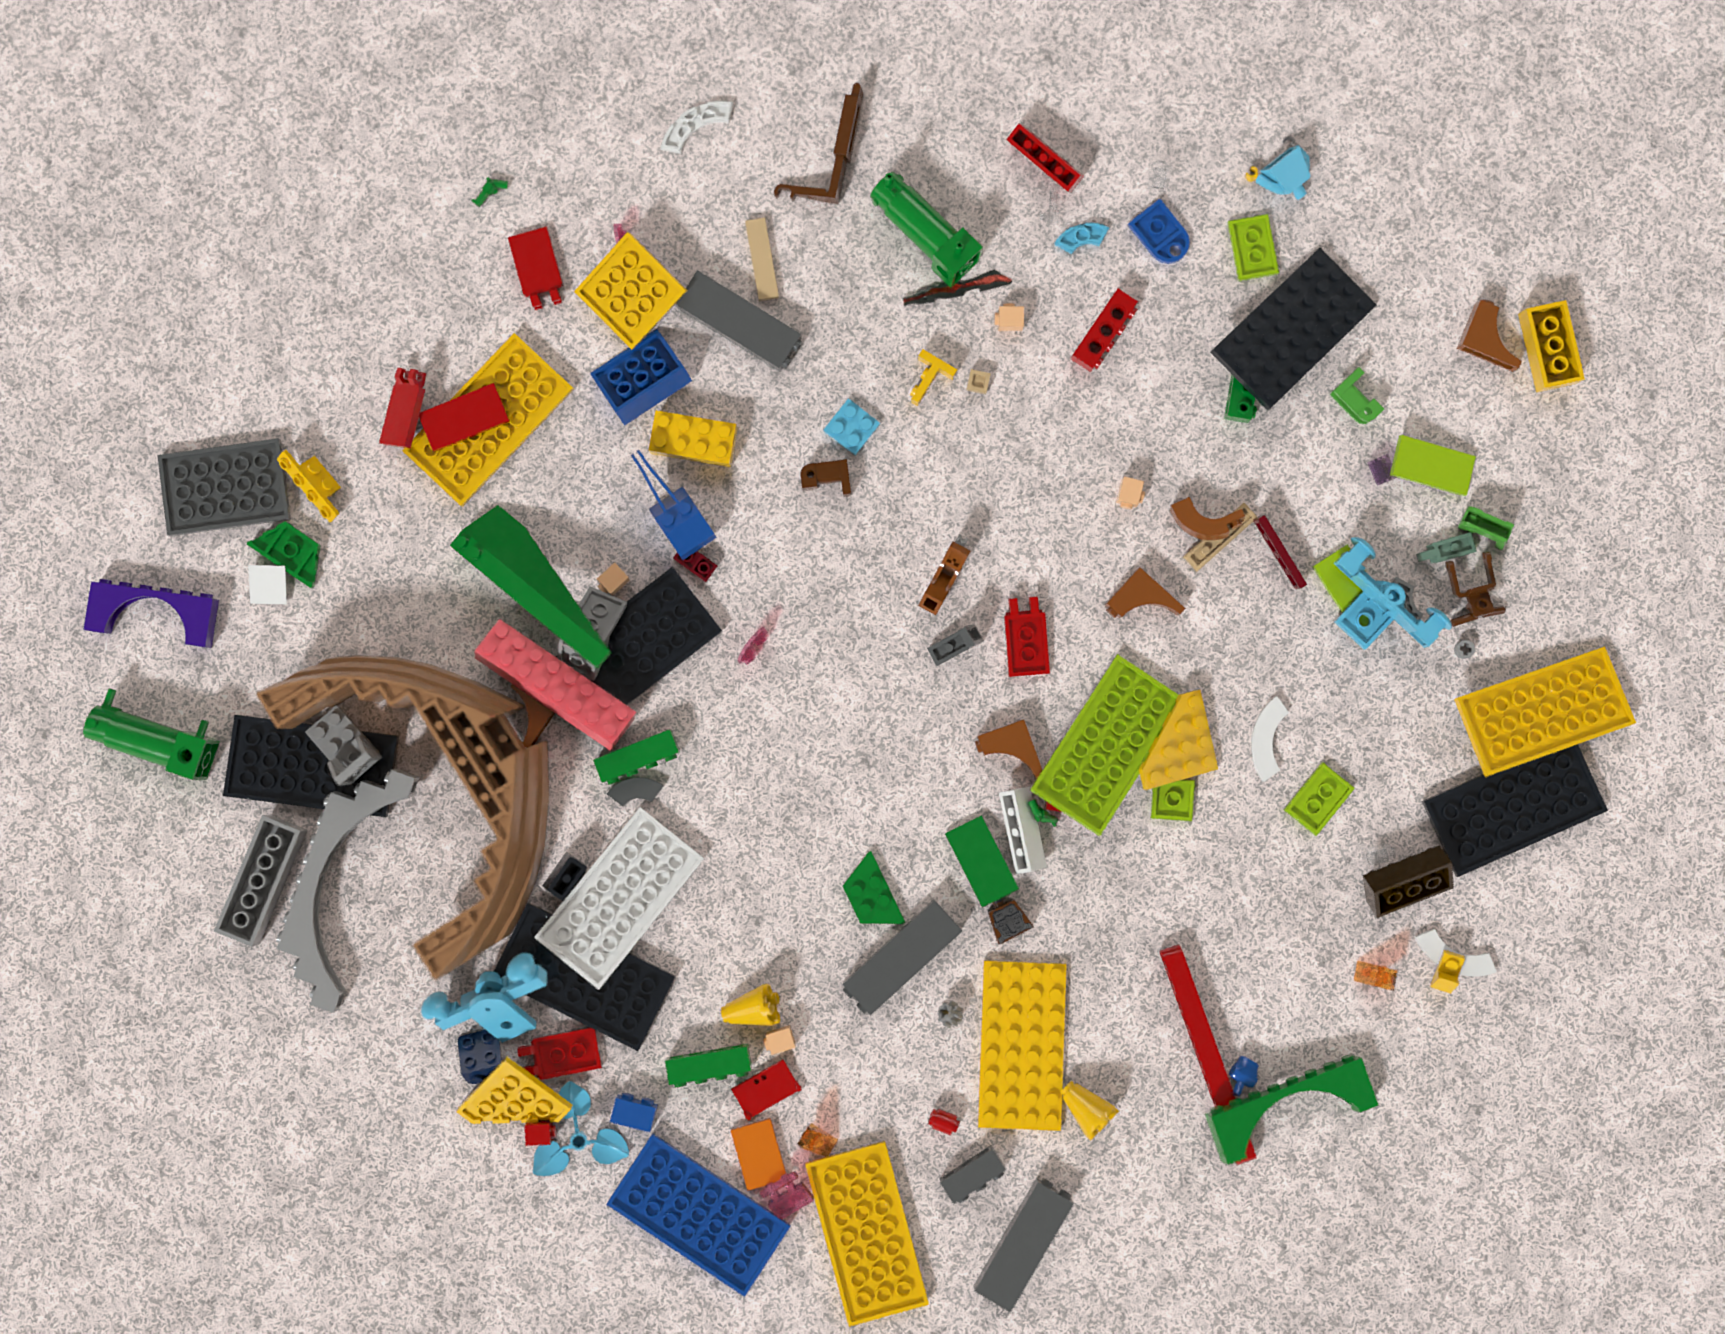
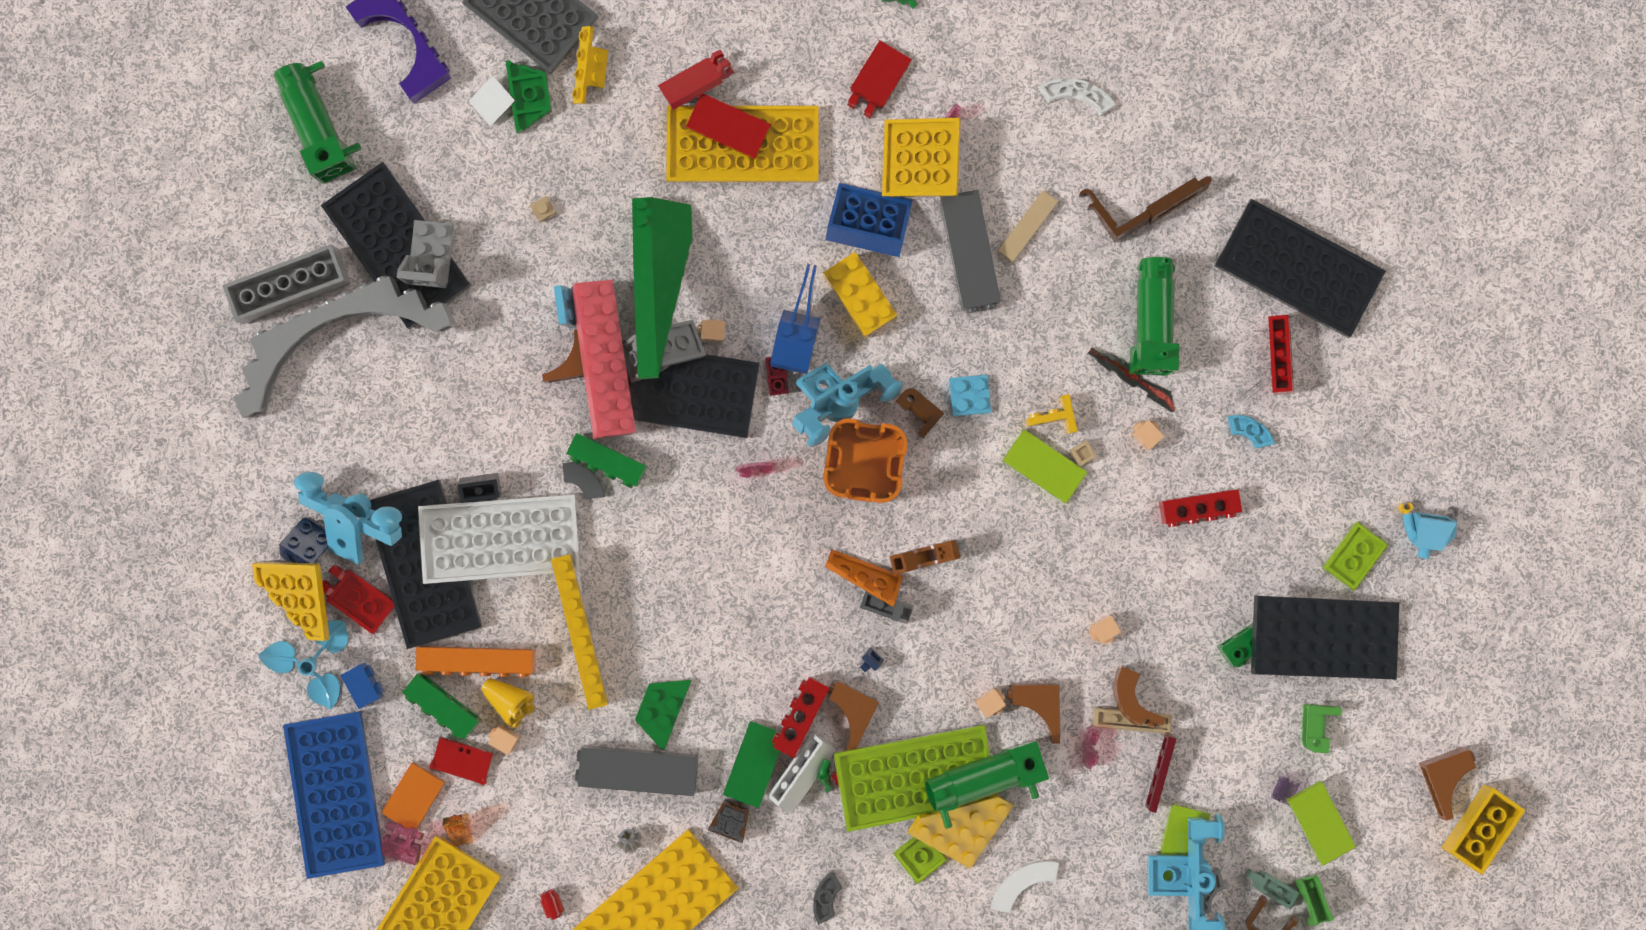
camera: 45 degrees right, 0 degrees up
(391, 623) = (543, 209): none -> tan plate
(485, 676) = (565, 306): none -> medium azure plate
(487, 755) = (511, 355): medium nougat piece -> none
(539, 1133) = (289, 634): red brick -> none
(696, 1005) = (475, 660): none -> orange brick
(750, 901) = (579, 631): none -> yellow brick
(759, 528) = (840, 398): none -> medium azure piece
(826, 555) = (864, 461): none -> orange piece
(920, 636) = (869, 577): none -> orange wing
(960, 421) = (1044, 466): none -> lime tile
(972, 759) = (818, 691): none -> red brick
(986, 694) = (872, 660): none -> dark blue tile
(992, 81) = (1300, 268): none -> black plate
(1026, 639) = (936, 652): red tile -> none
(1105, 633) = (991, 702): none -> light nougat brick
(1135, 903) = (824, 897): none -> dark grey tile
(1159, 231) = (1306, 481): blue tile -> none
(1159, 689) = (987, 778): none -> green piece
(1215, 594) = (1090, 755): none -> clear pink slope

